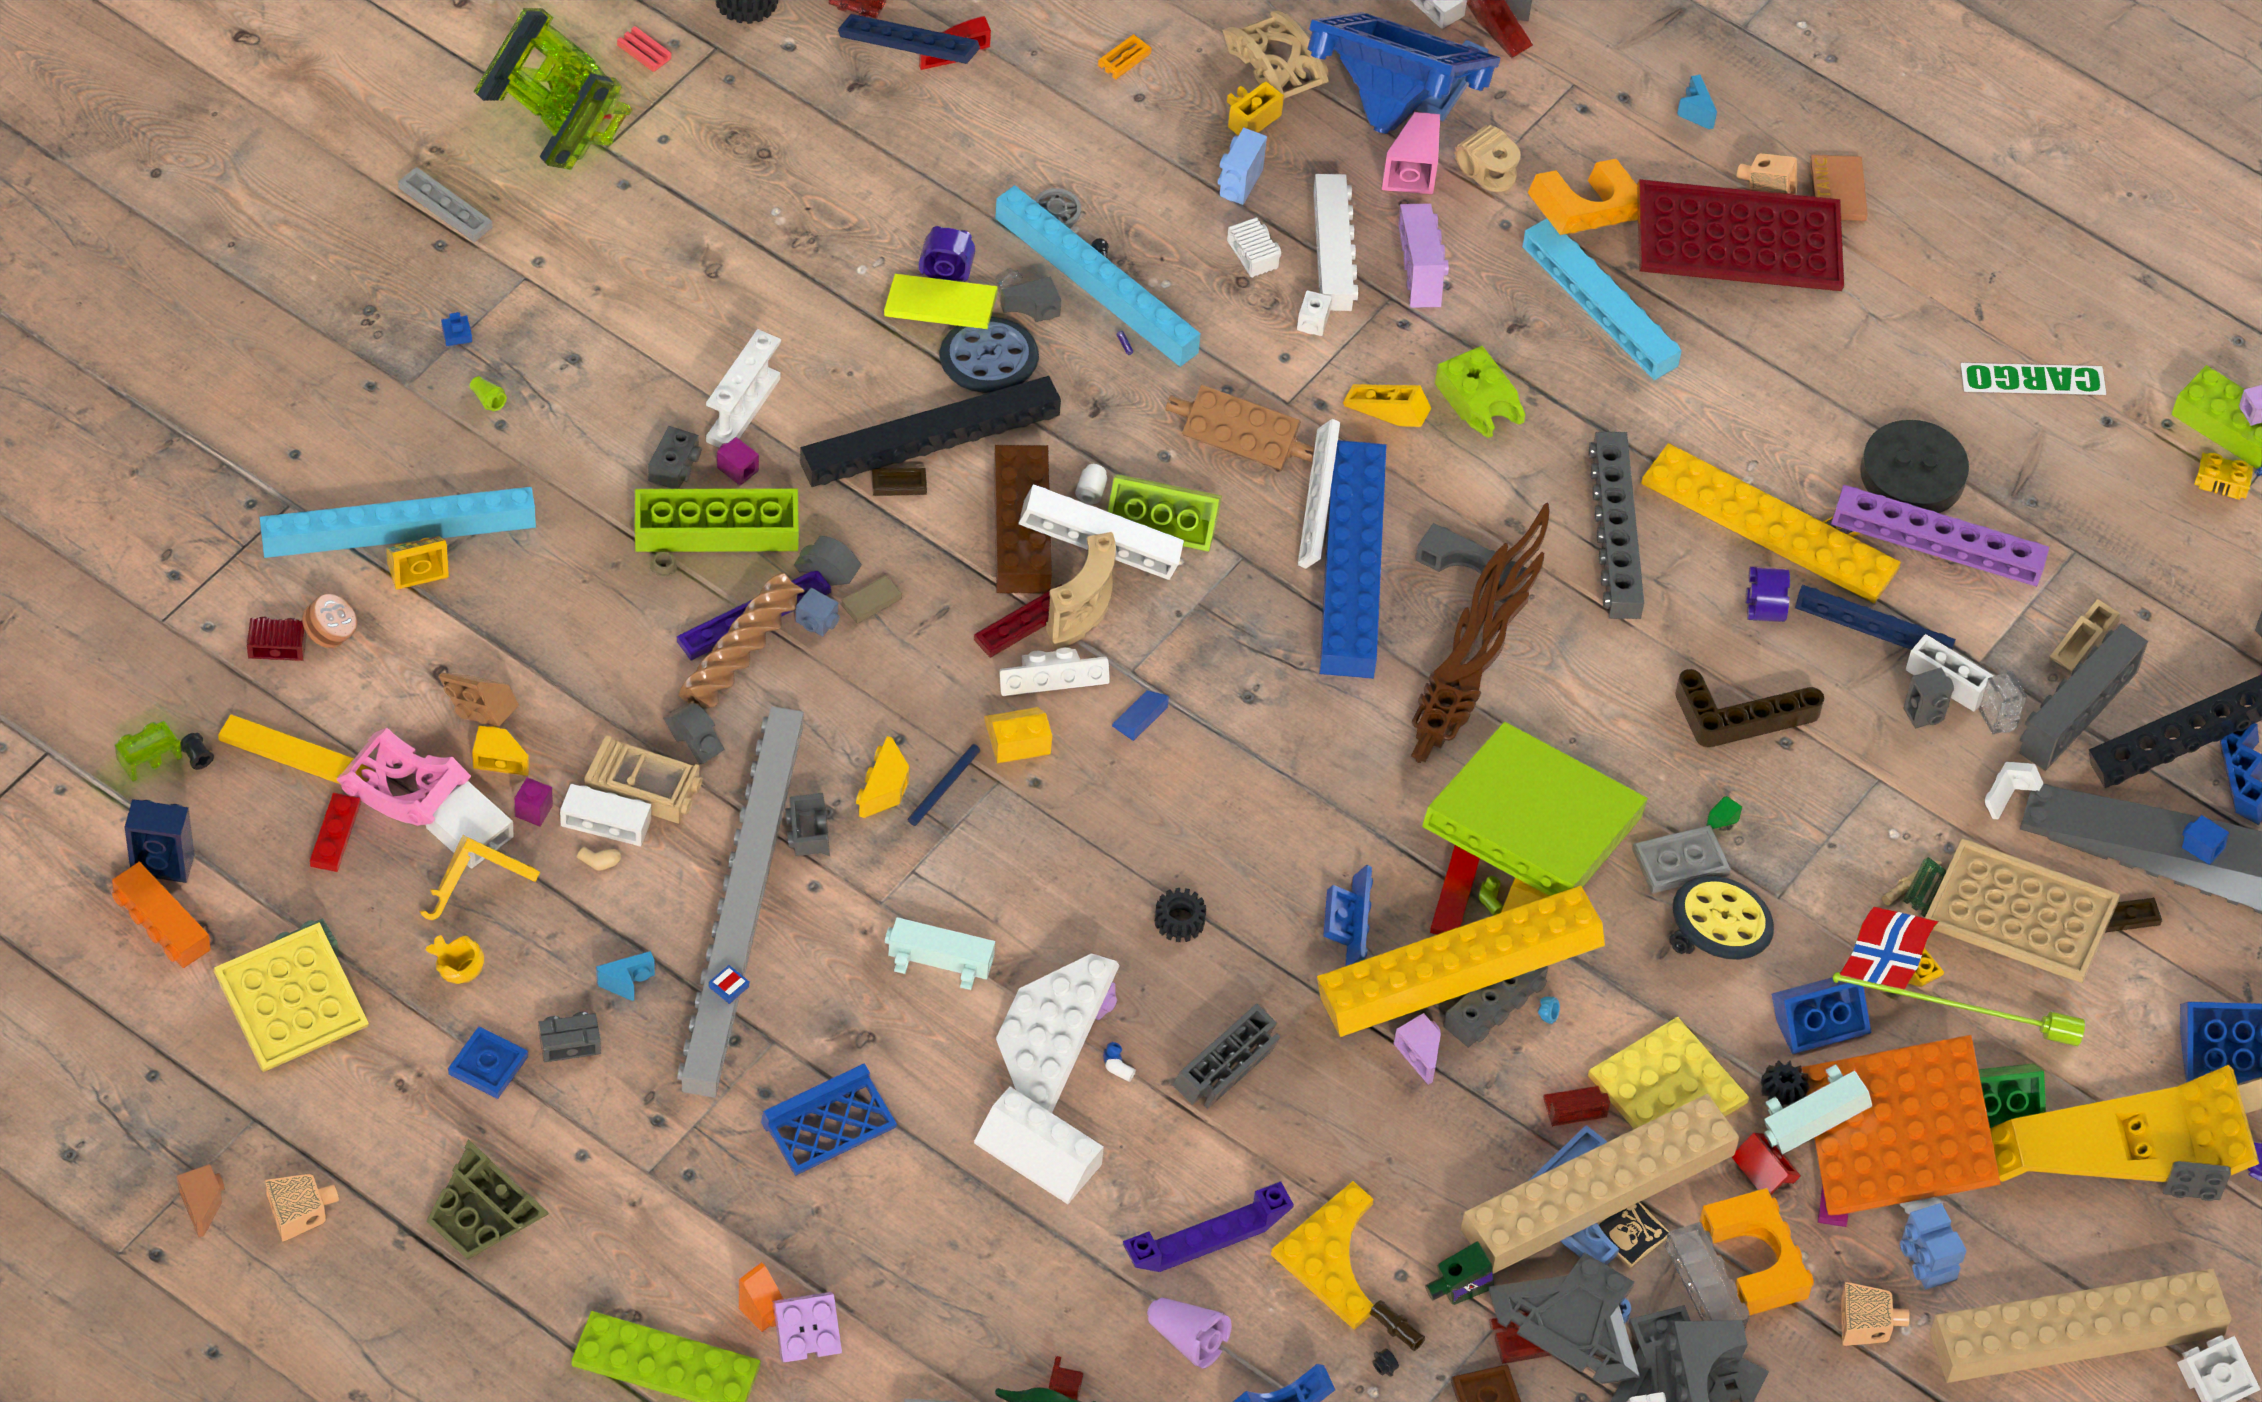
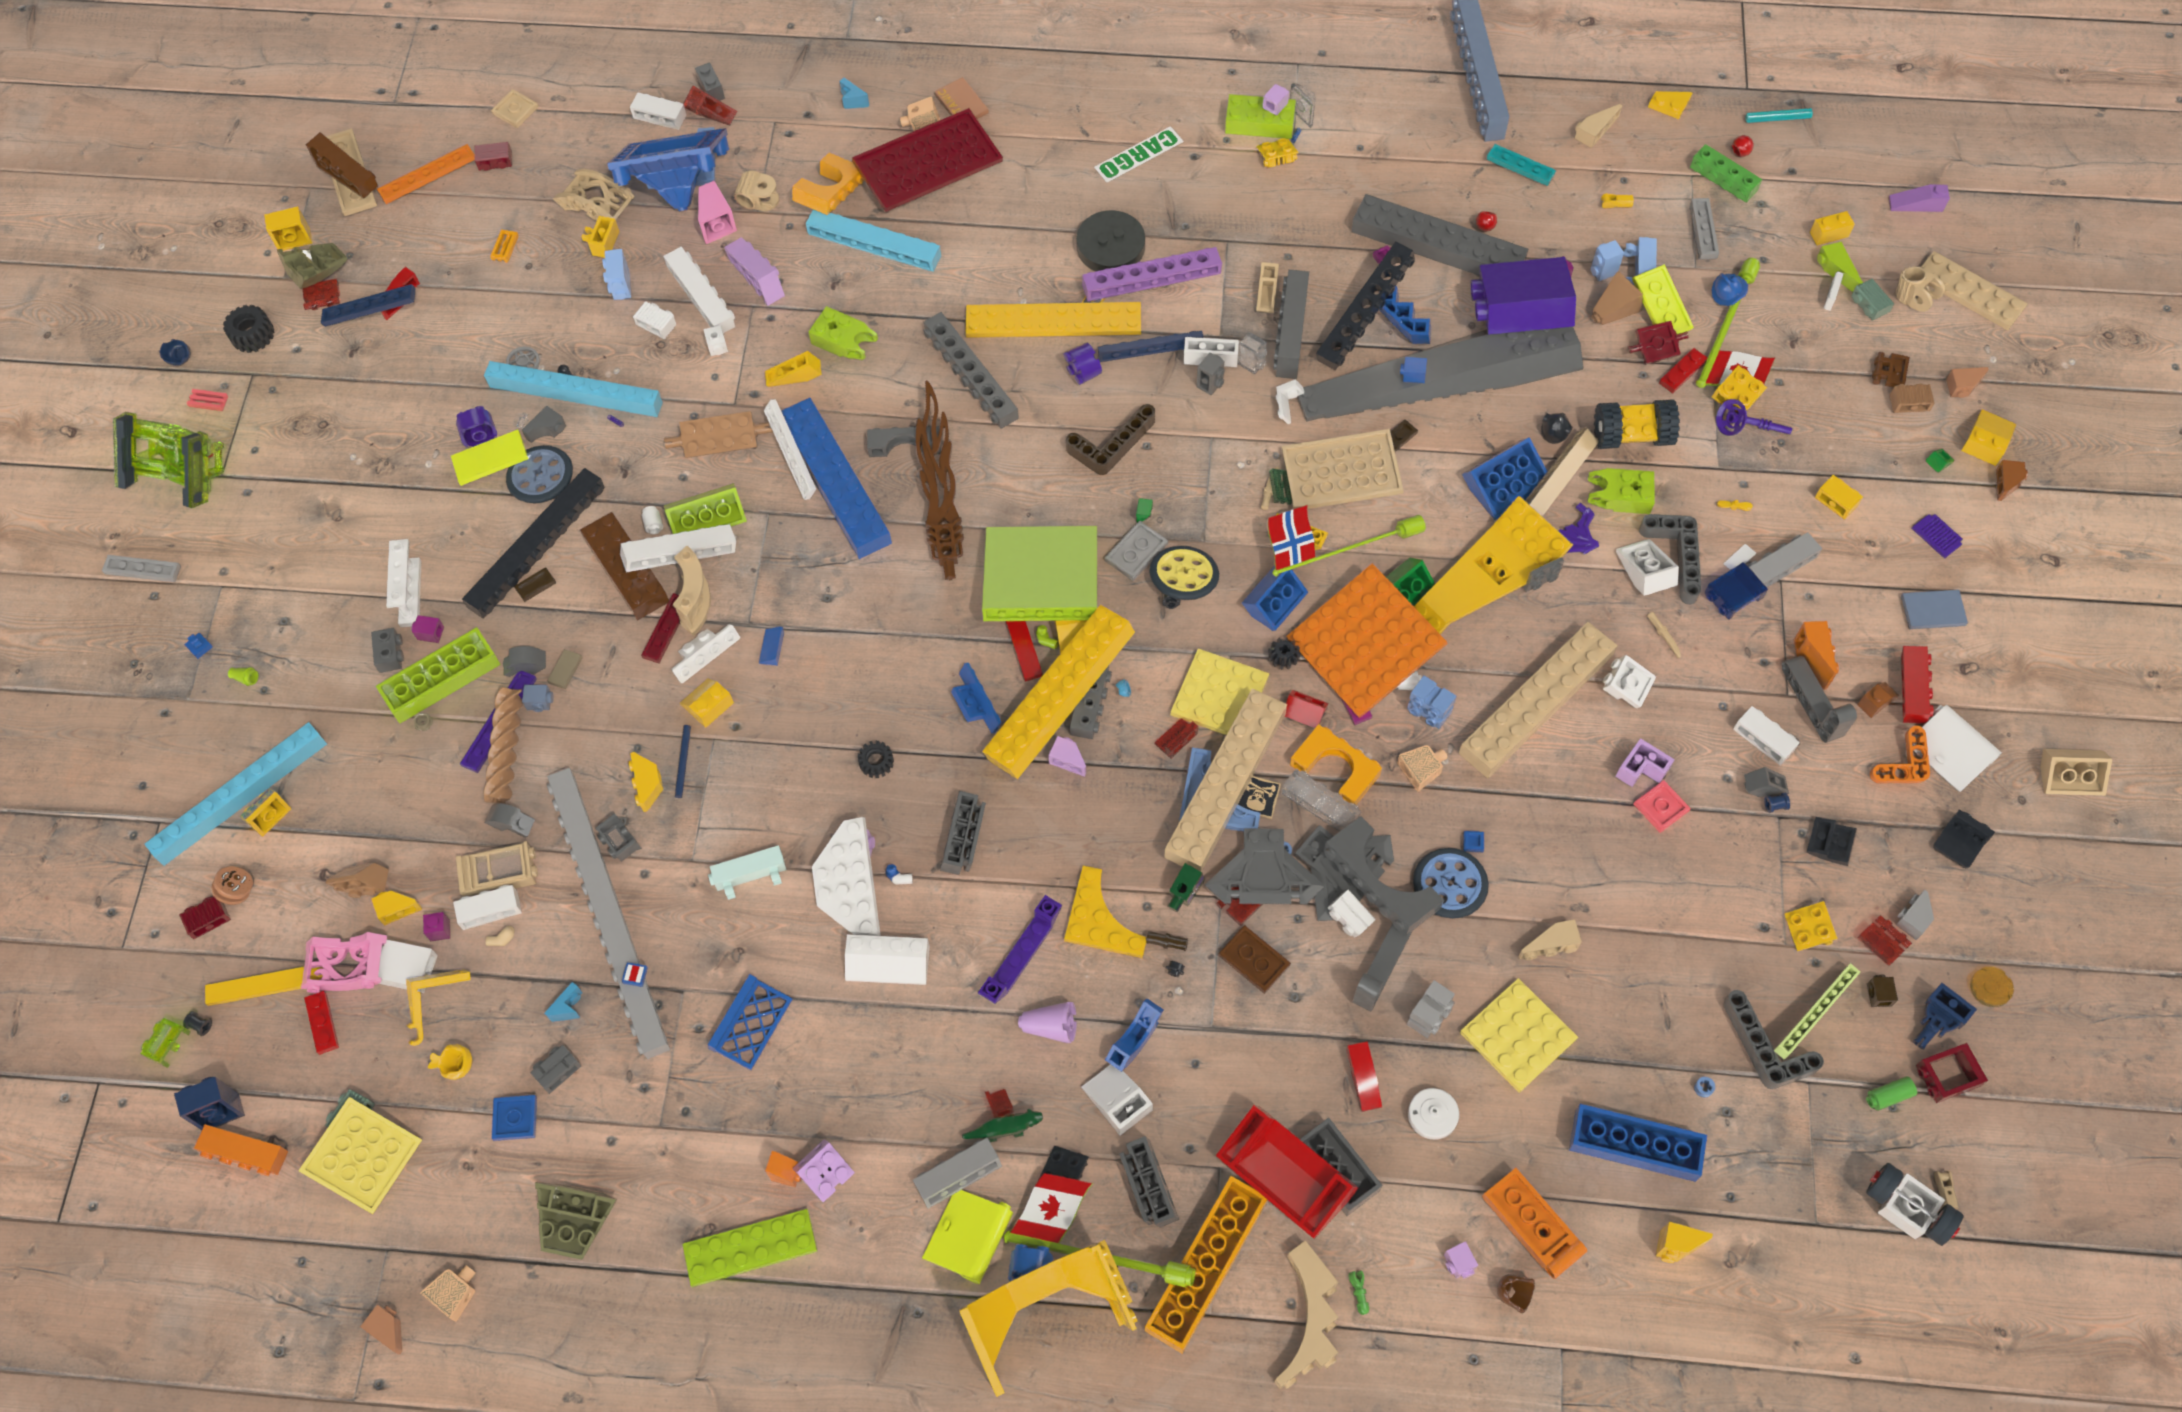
camera: 25 degrees left, 10 degrees up
(1816, 1112) = (1316, 661): light aqua brick -> none

